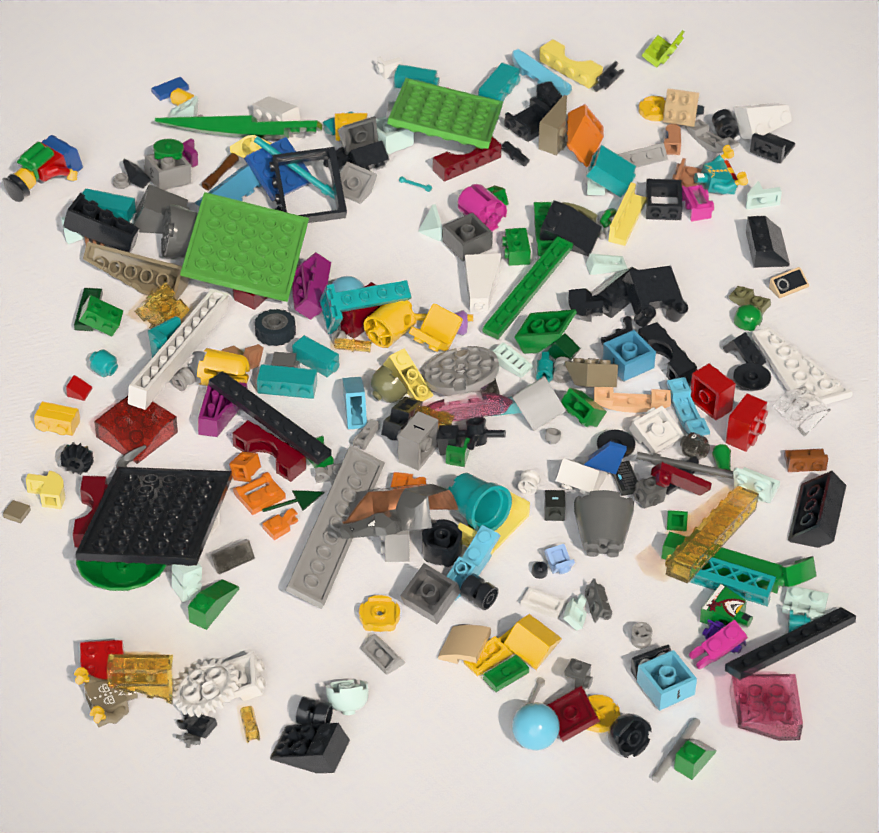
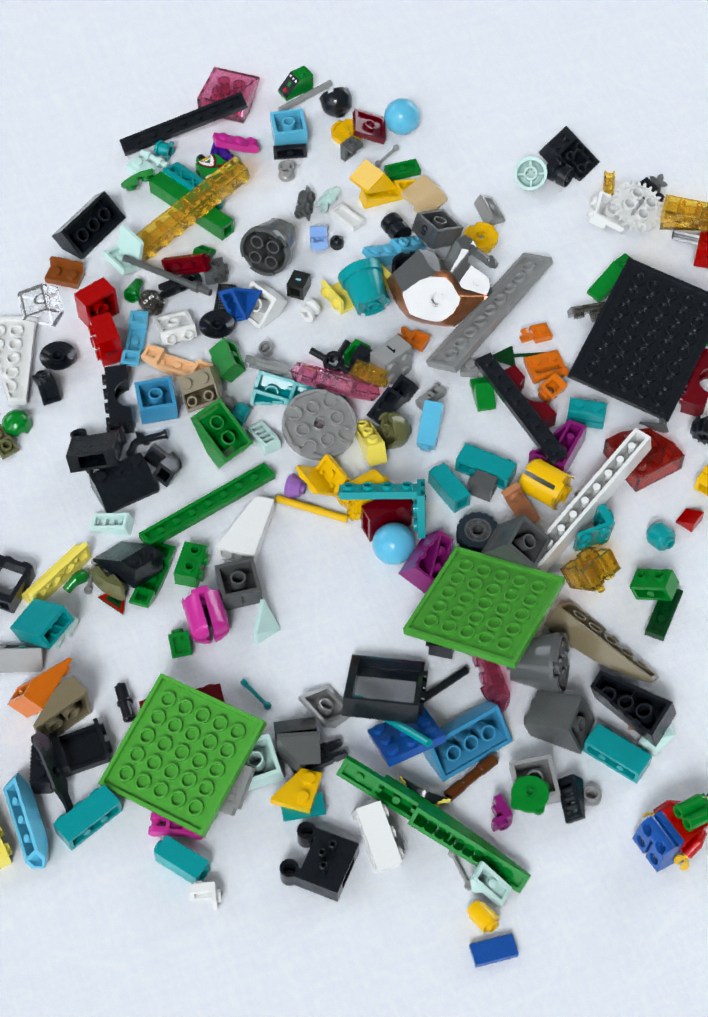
camera: 160 degrees left, 10 degrees up
(203, 449) = (587, 412): none -> teal brick
(234, 296) = (518, 542): none -> dark grey slope
(311, 98) = (325, 865): none -> black piece
(539, 87) = (53, 768): none -> black piece

